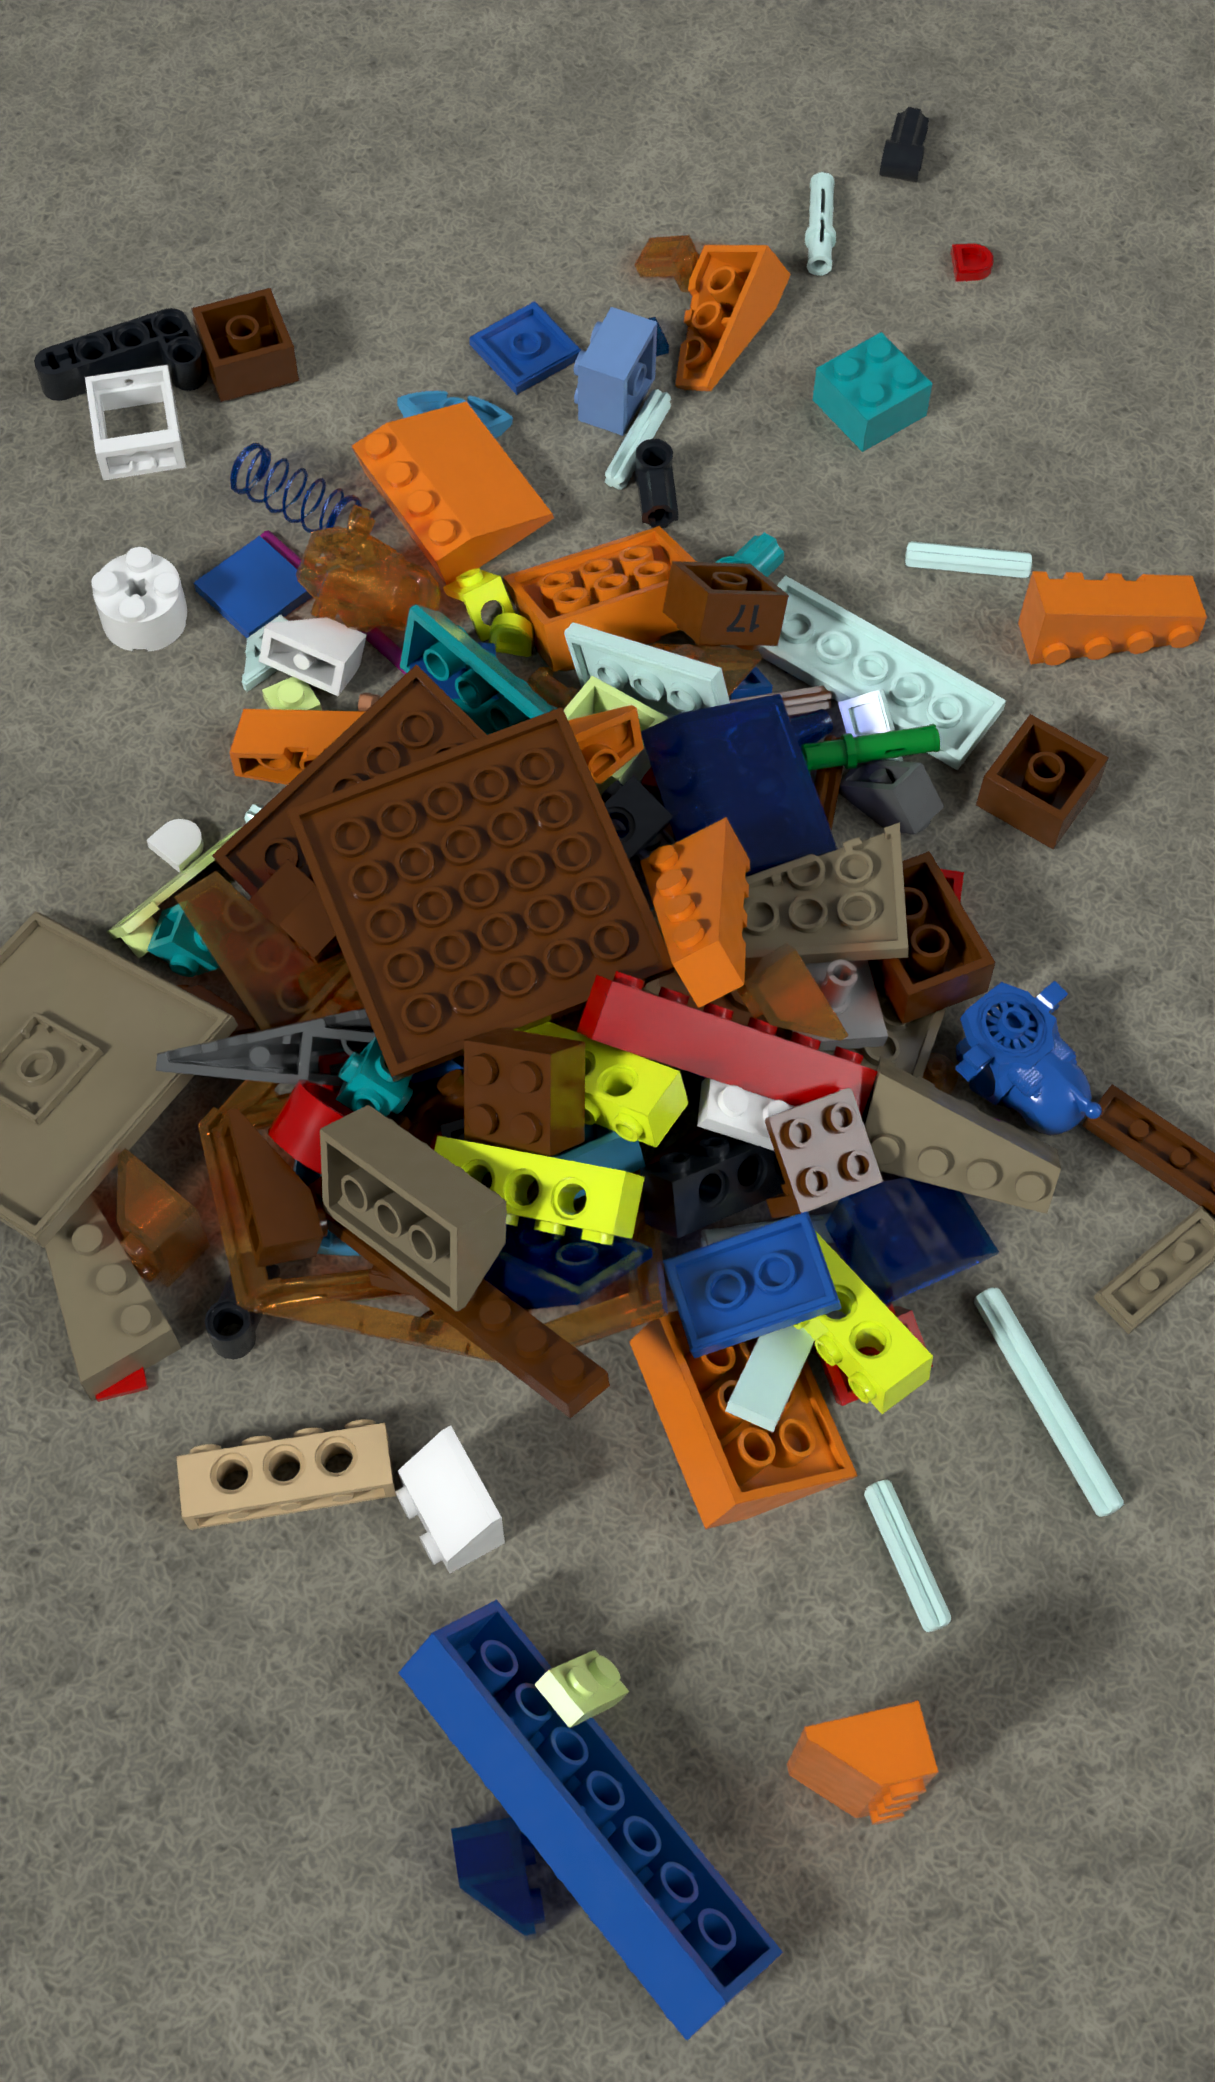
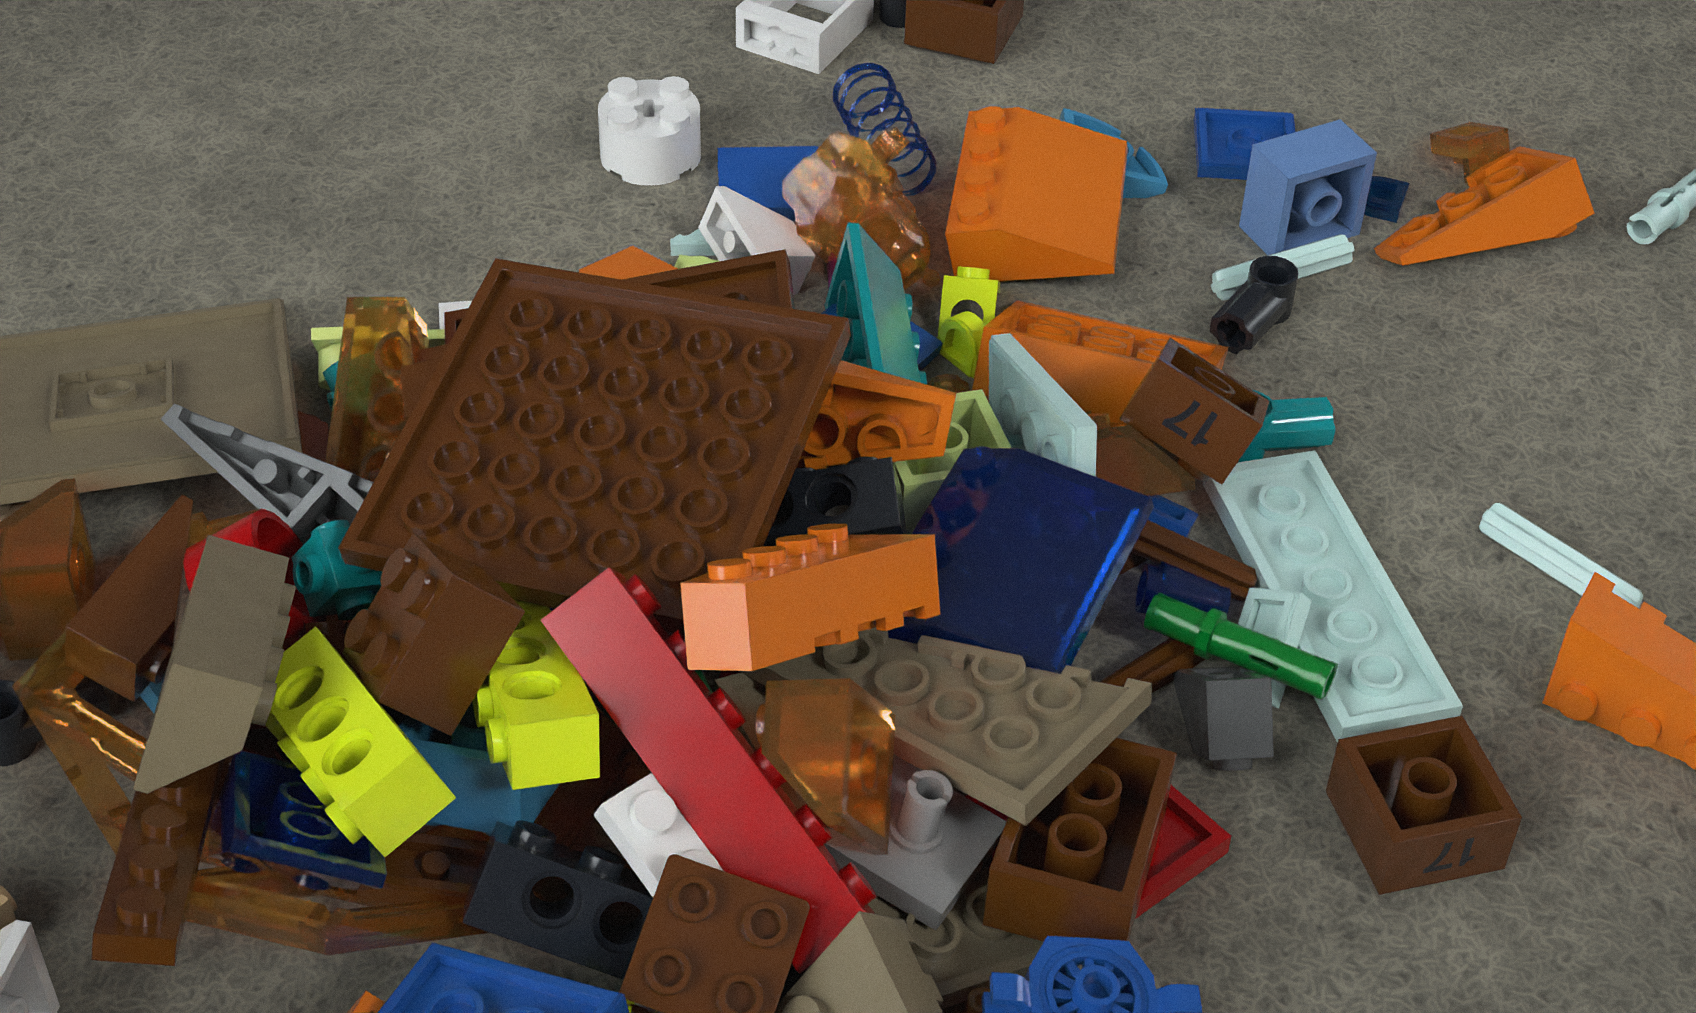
camera: 40 degrees right, 20 degrees down
(872, 391) = (1589, 352): teal brick -> none

